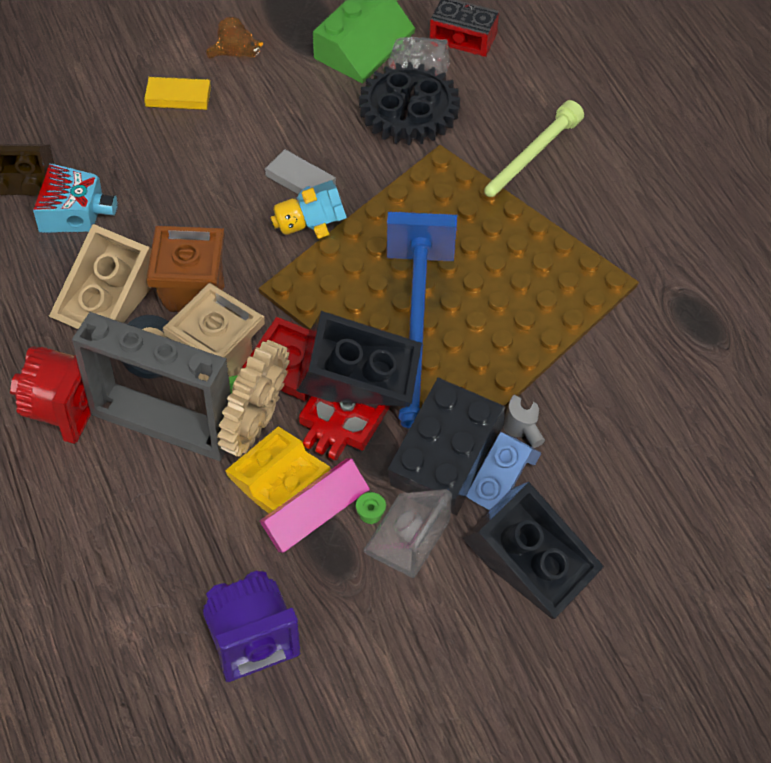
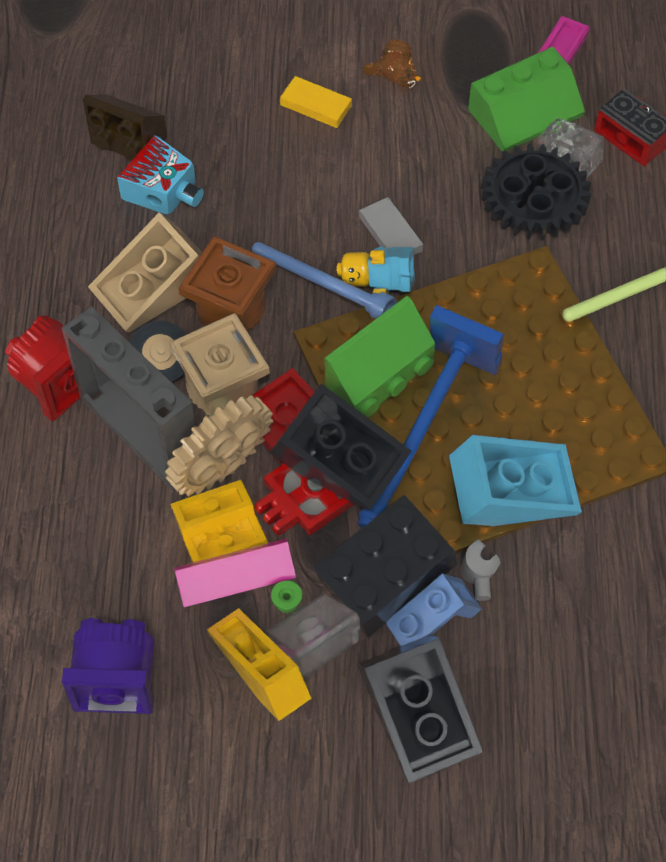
camera: 25 degrees right, 5 degrees up
(326, 238) = (375, 303): none -> medium blue piece
(357, 273) = (381, 358): none -> bright green slope
(380, 570) = (261, 664): none -> yellow slope
(515, 338) = (512, 481): none -> medium azure slope

